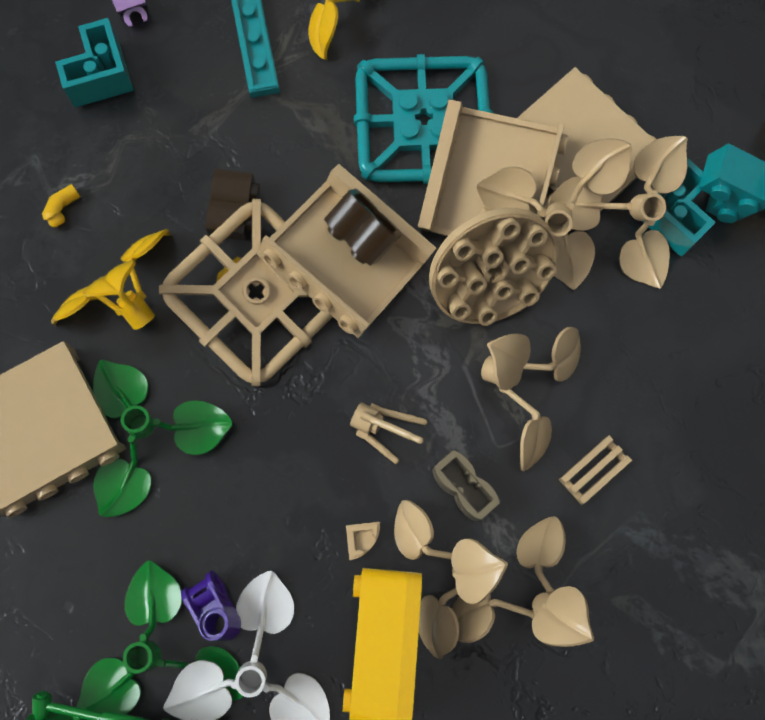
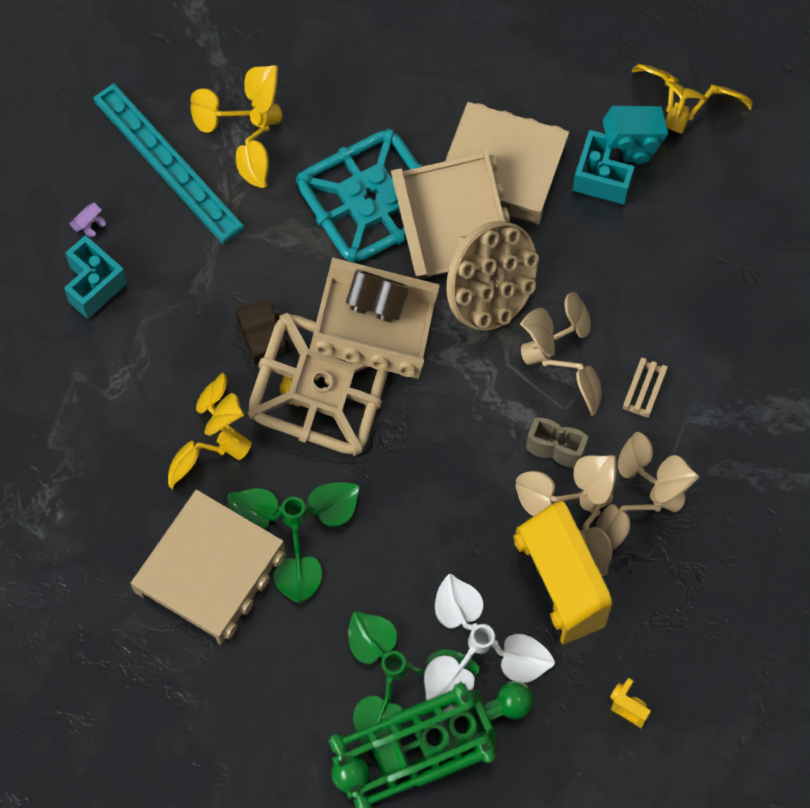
camera: 25 degrees left, 10 degrees down
(56, 203) = (120, 400): yellow arm -> none
(207, 603) = (417, 618): dark purple piece -> none
(361, 538) = (501, 521): tan tile -> none
(370, 419) = (458, 434): tan plant -> none
(600, 164) = (530, 165): tan plant -> none
(663, 169) = (572, 144): tan plant -> none

